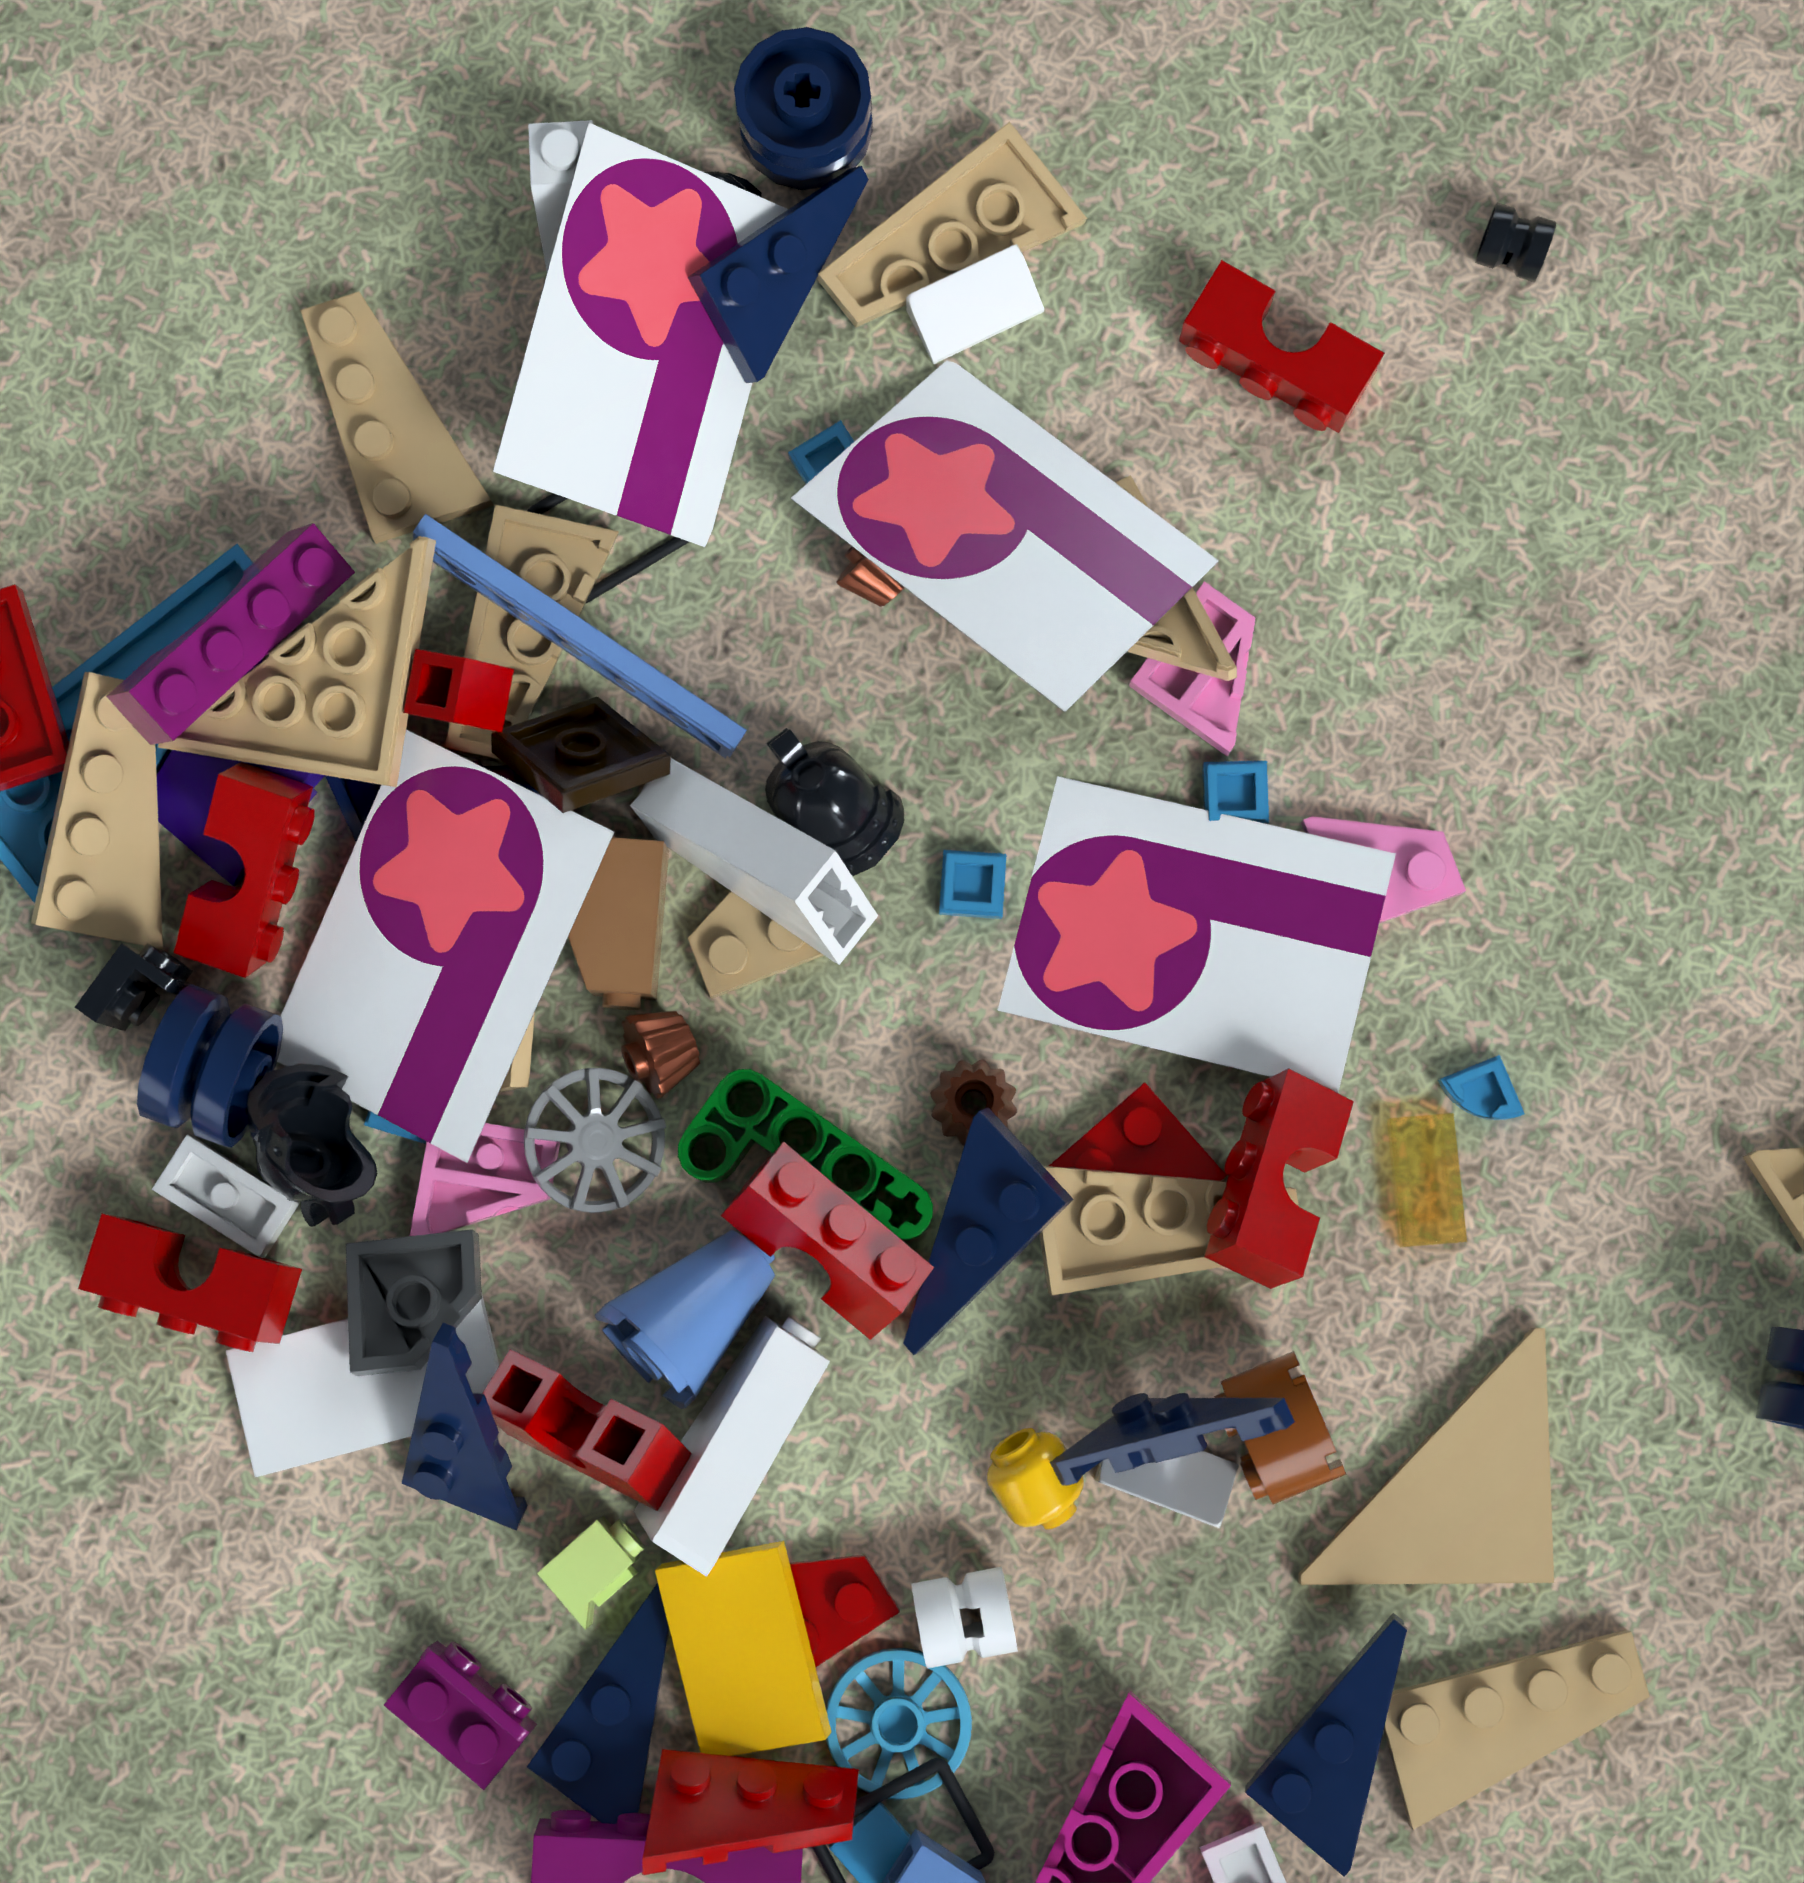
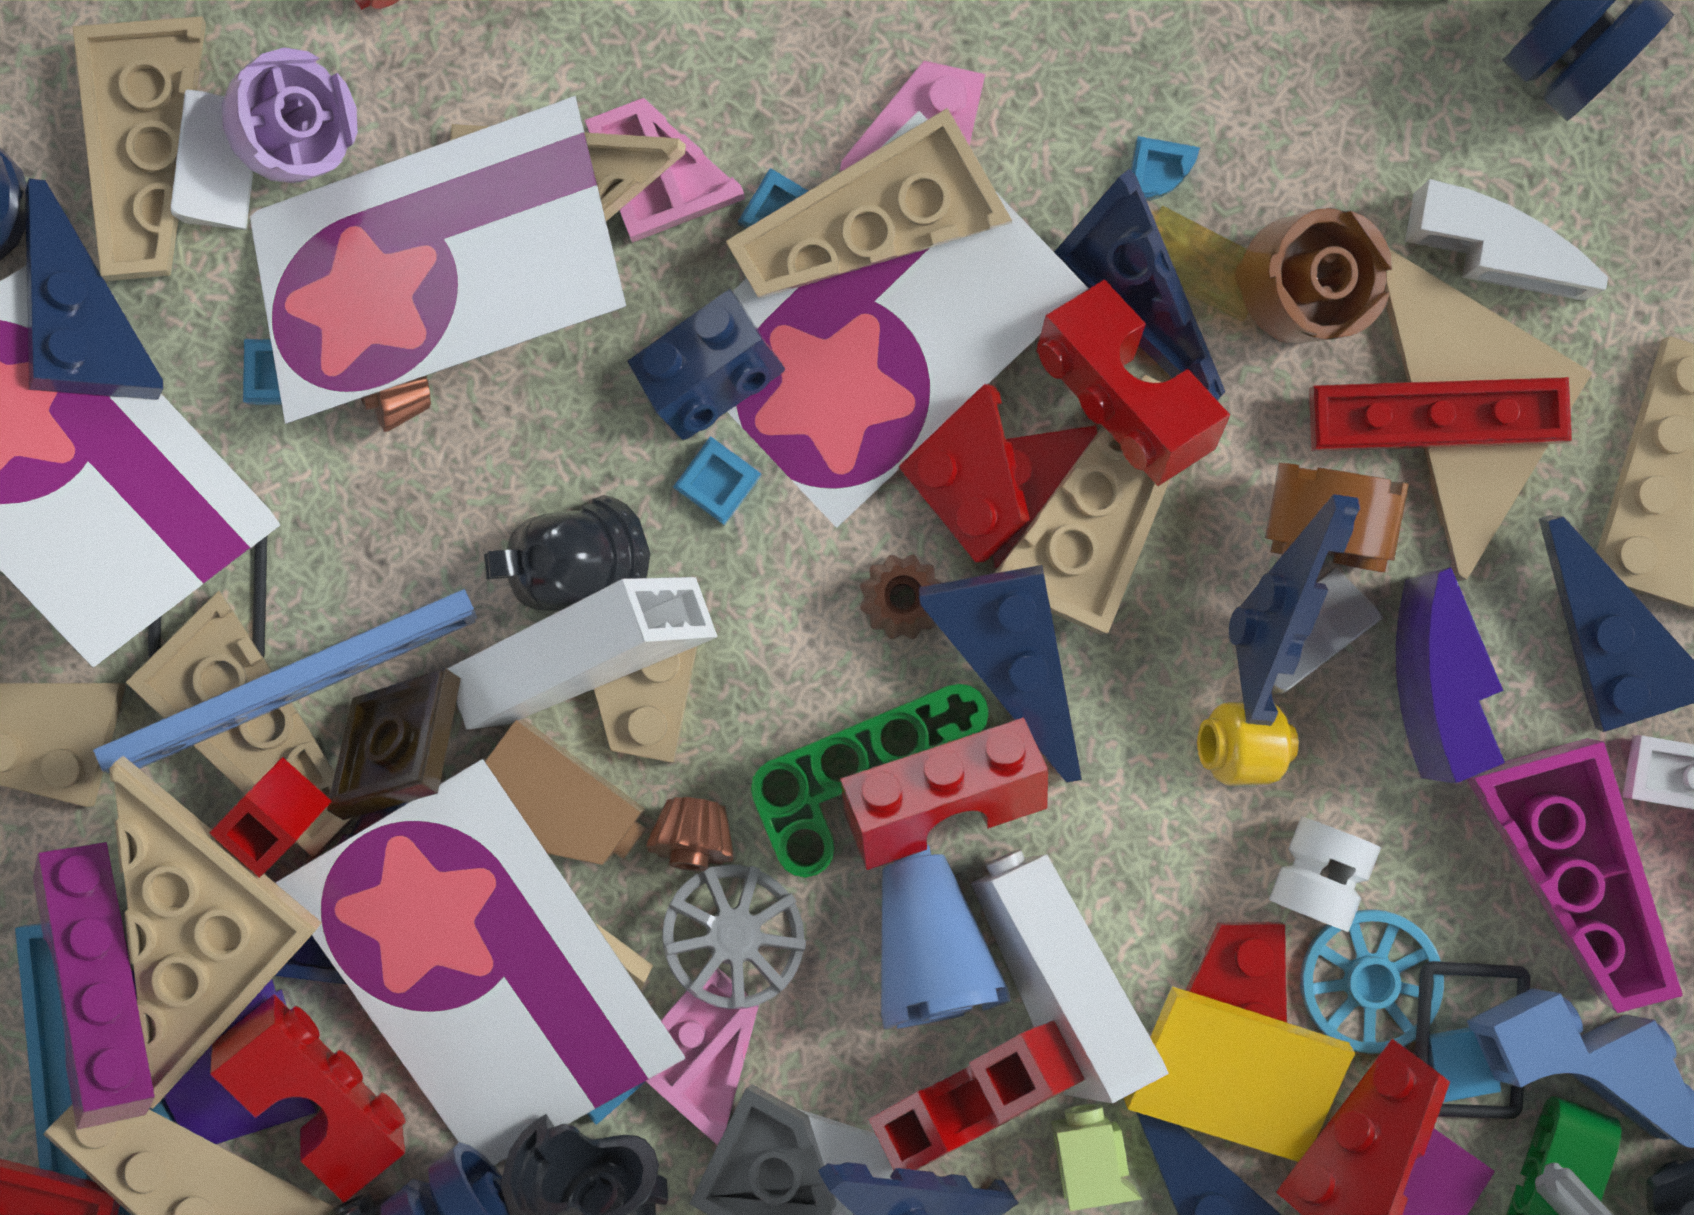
camera: 65 degrees left, 5 degrees up
(1047, 341) = (289, 116): none -> lavender cylinder
(1062, 812) = (705, 366): none -> dark blue bracket
(1111, 1094) = (970, 476): none -> red wing
(1195, 1611) = (1442, 679): none -> dark purple slope
(1293, 875) = (885, 206): none -> tan wing
(1391, 1102) = (1125, 248): none -> dark blue wing
(1429, 1469) = (1440, 414): none -> red tile
(1485, 1313) = (1315, 276): none -> dark orange brick
(1613, 1428) = (1500, 242): none -> white slope

